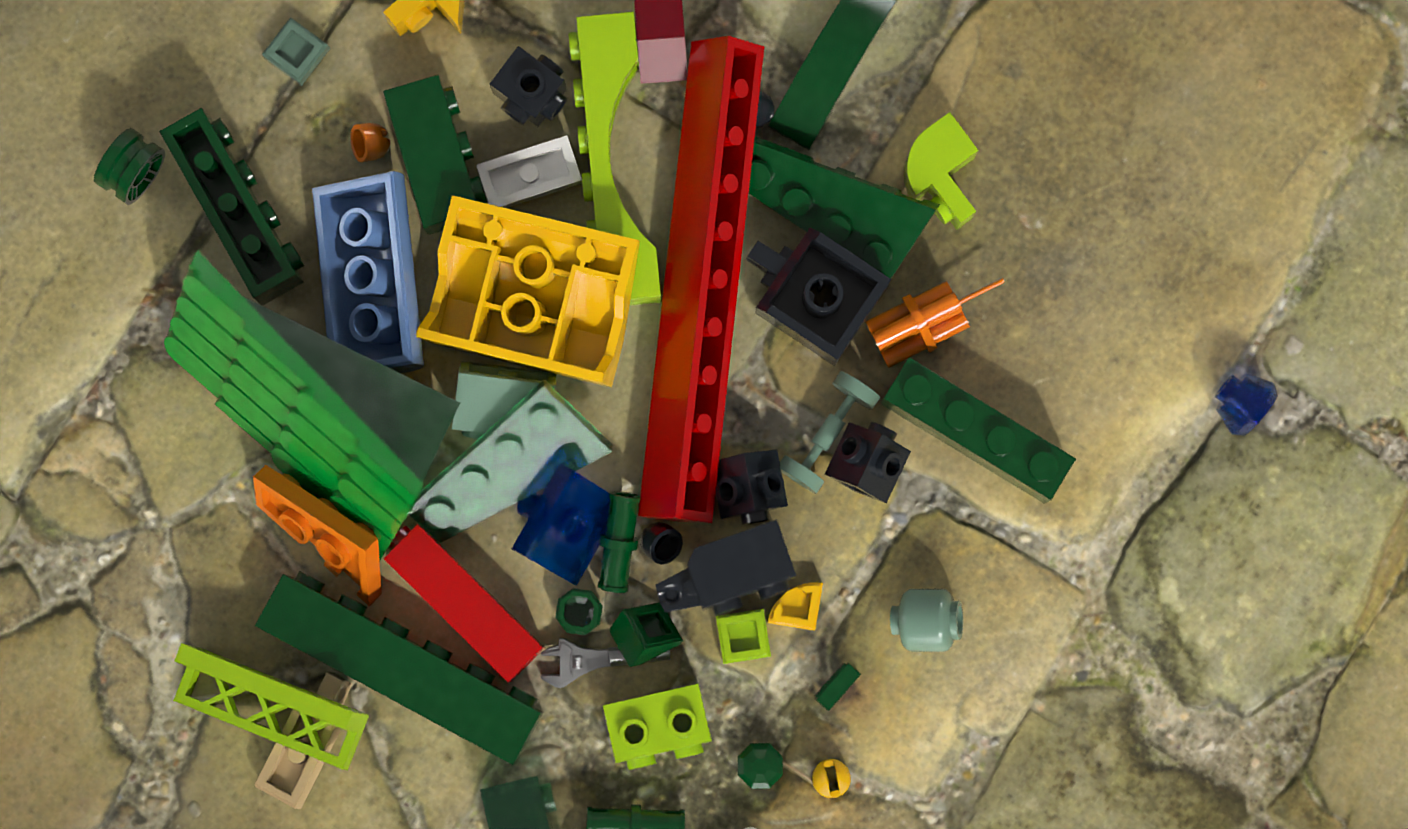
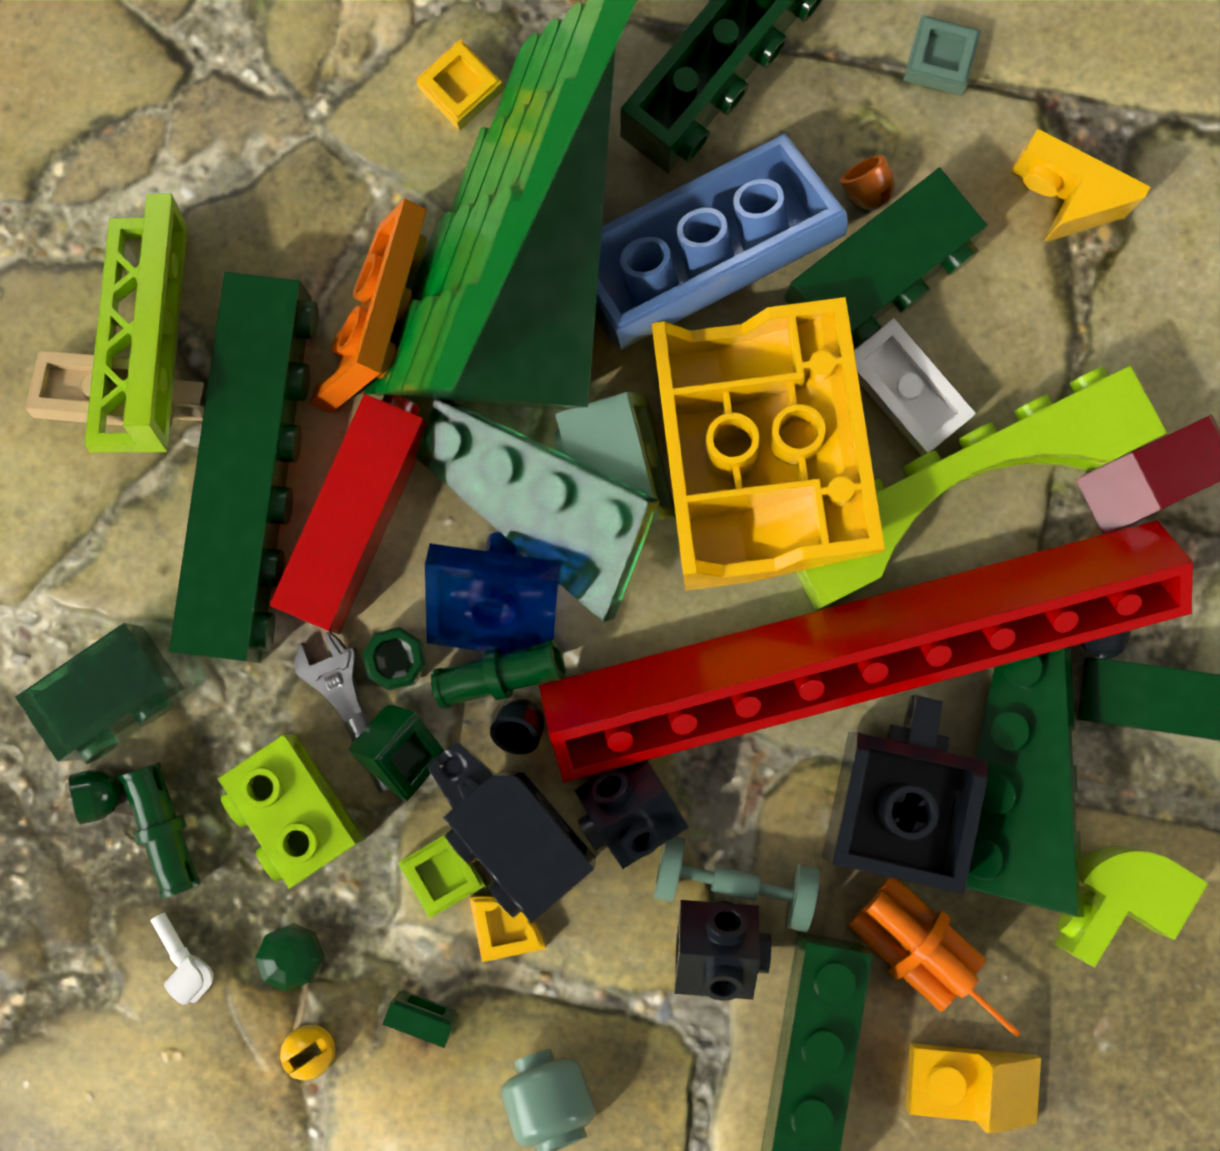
camera: 70 degrees right, 0 degrees up
(175, 407) = (460, 84): none -> yellow tile
(519, 75) = (1016, 344): black brick -> none
(1029, 324) = (973, 1085): none -> yellow slope

